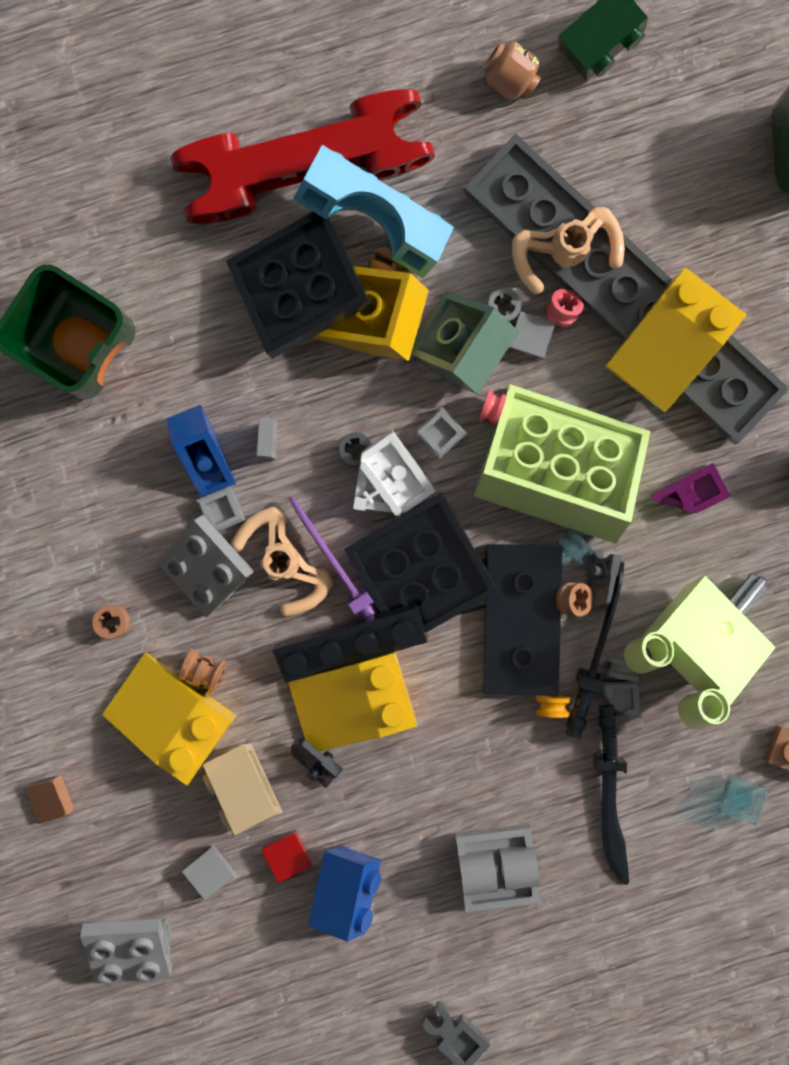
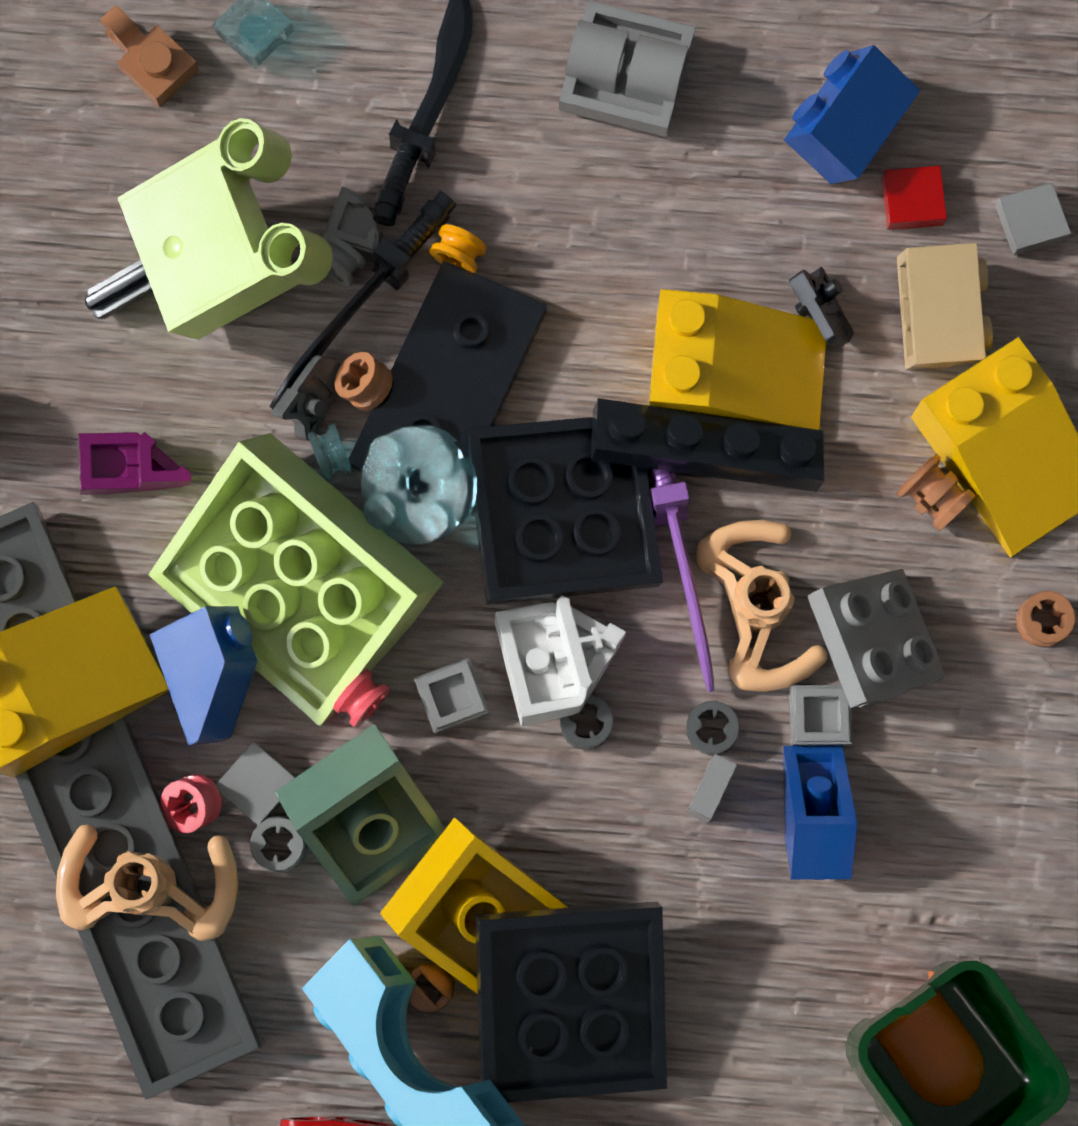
camera: 150 degrees left, 10 degrees down
(270, 479) = (730, 730): none -> dark grey bush
(524, 529) = (386, 489): none -> clear light blue plate
(589, 385) = (207, 670): none -> slope

